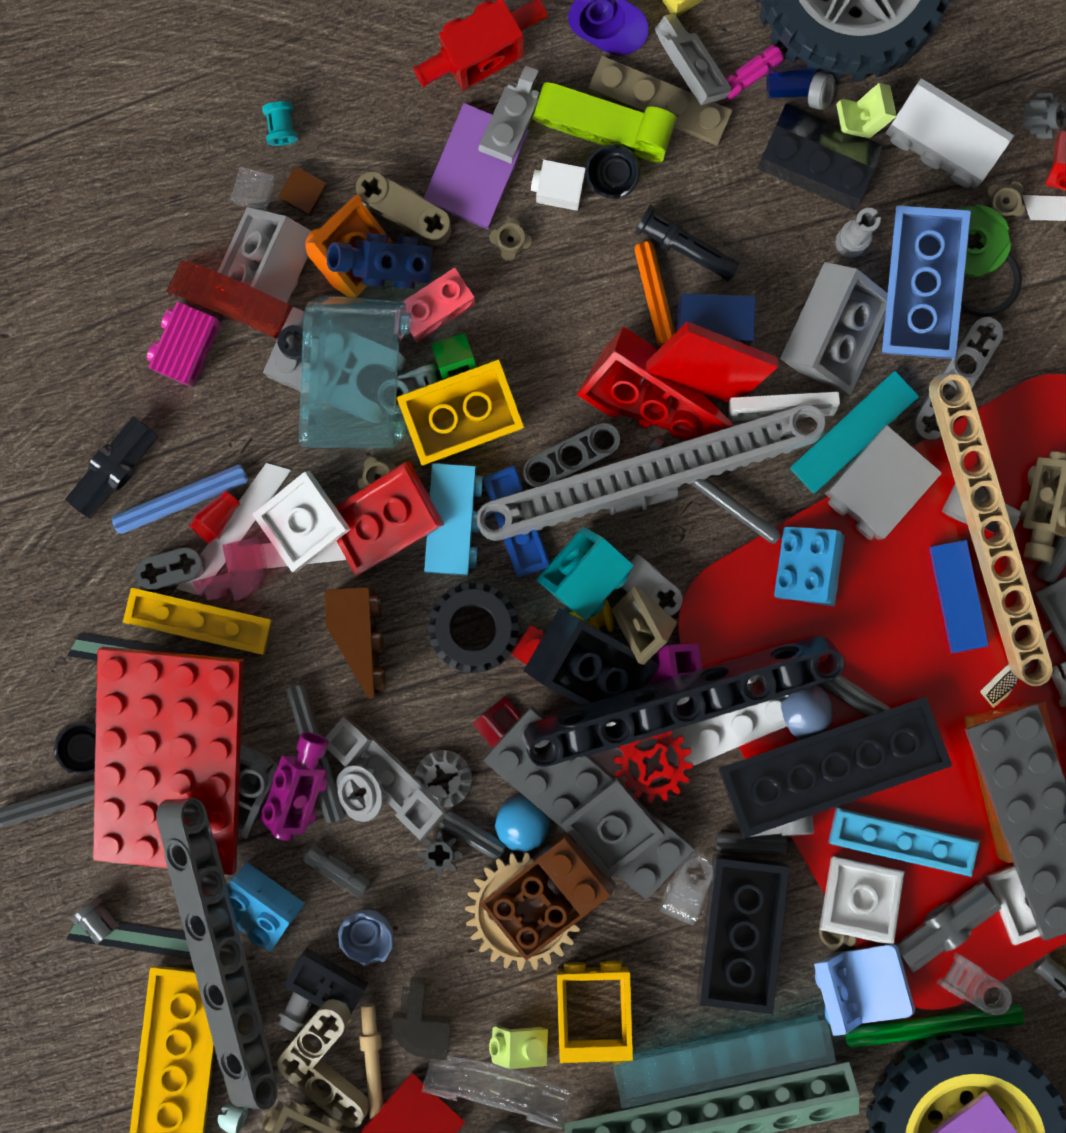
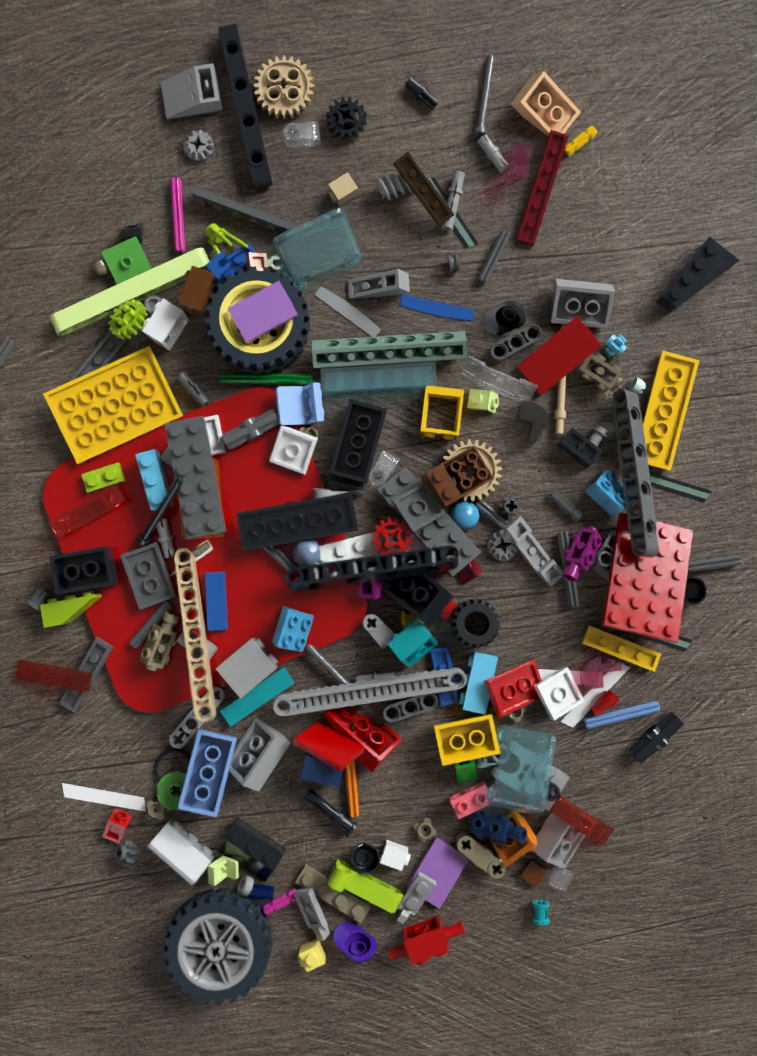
camera: 170 degrees left, 0 degrees up
(95, 920) = (695, 499): dark grey bush -> none
(172, 577) = (632, 683): dark grey beam -> none
(183, 343) = (609, 799): dark pink brick -> none
(310, 1059) = (593, 410): dark tan beam -> none
(348, 784) = (552, 550): light grey gear -> none
(352, 624) = (539, 633): reddish brown slope -> none
(366, 937) = (555, 469): sand blue hair -> none
(643, 623) = (386, 612): dark tan slope -> none
(761, 406) = (309, 718): white tile -> none
(857, 233) = (239, 804): light grey pin -> none
(903, 842) = (266, 476): medium azure tile -> none
(970, 984) = (244, 399): clear piece -> none

